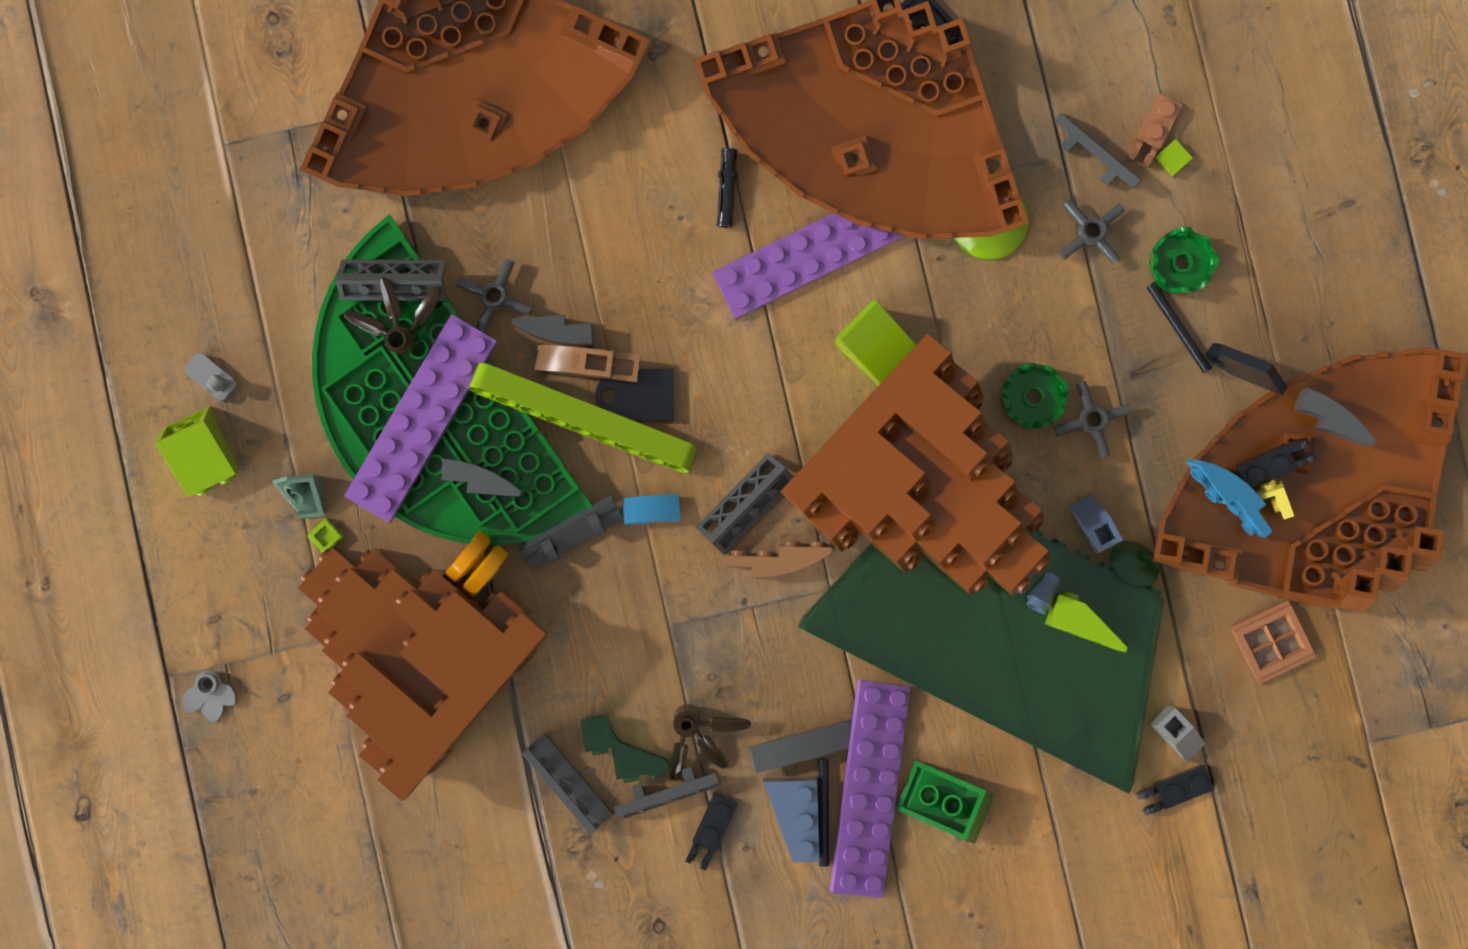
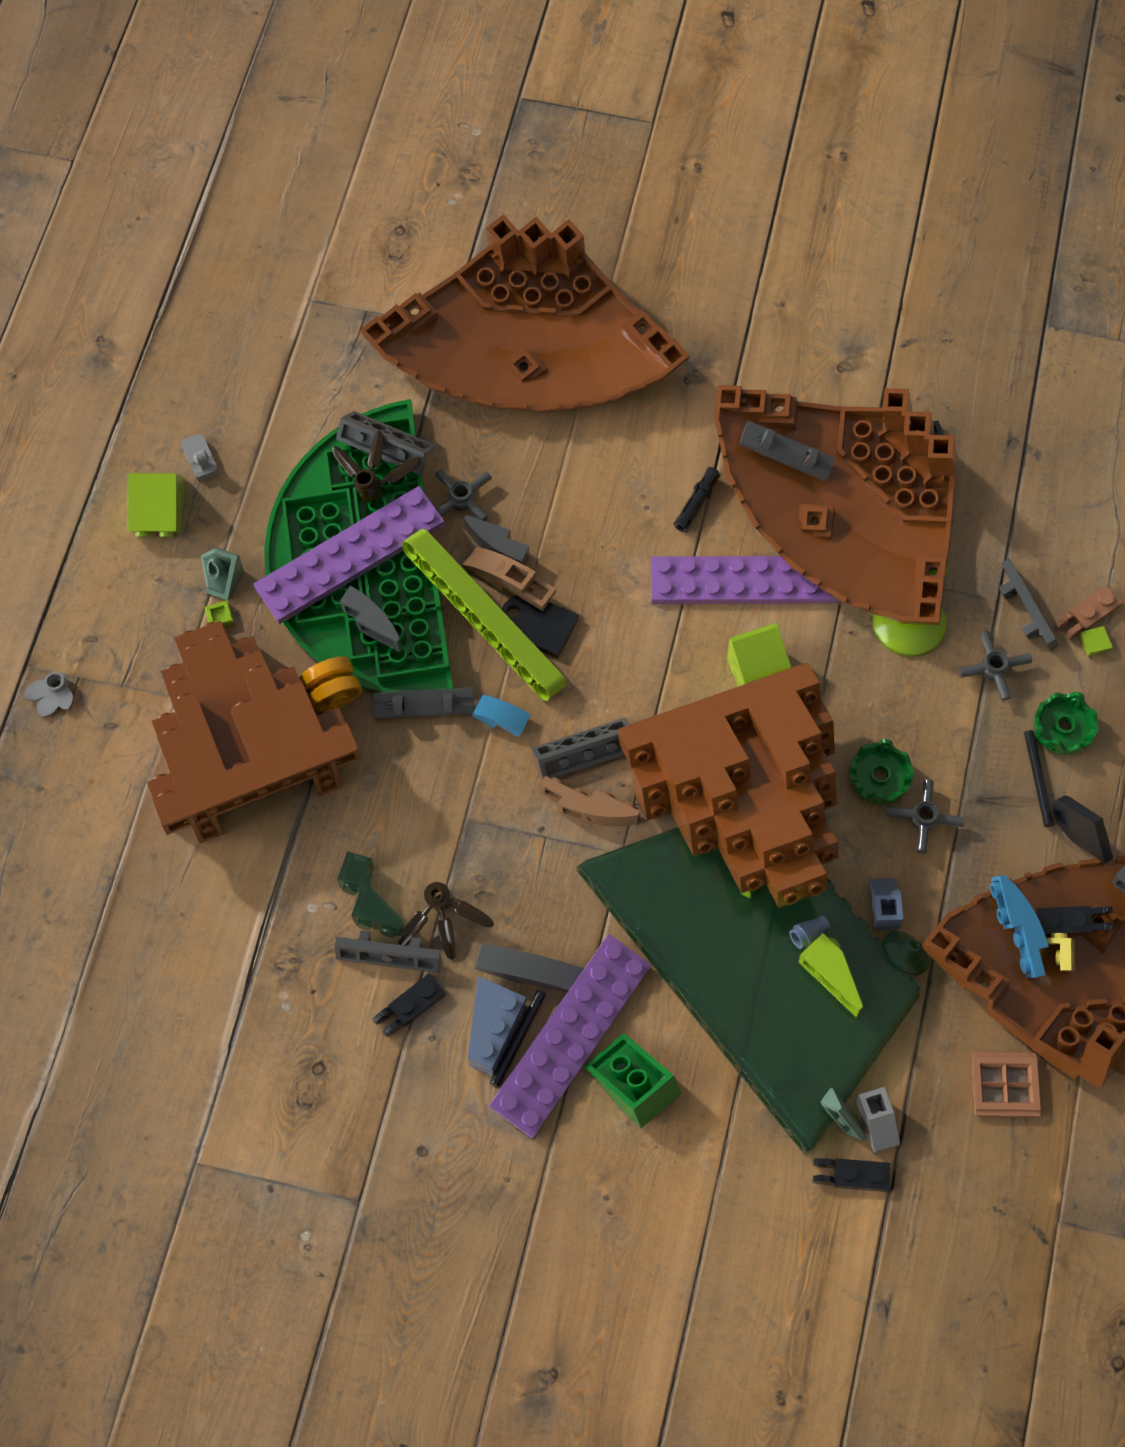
camera: 25 degrees right, 20 degrees down
(567, 783) = (307, 904): dark grey fence -> none
(792, 96) = (786, 451): none -> dark grey hinge
(1148, 746) = (842, 1115): none -> sand green slope

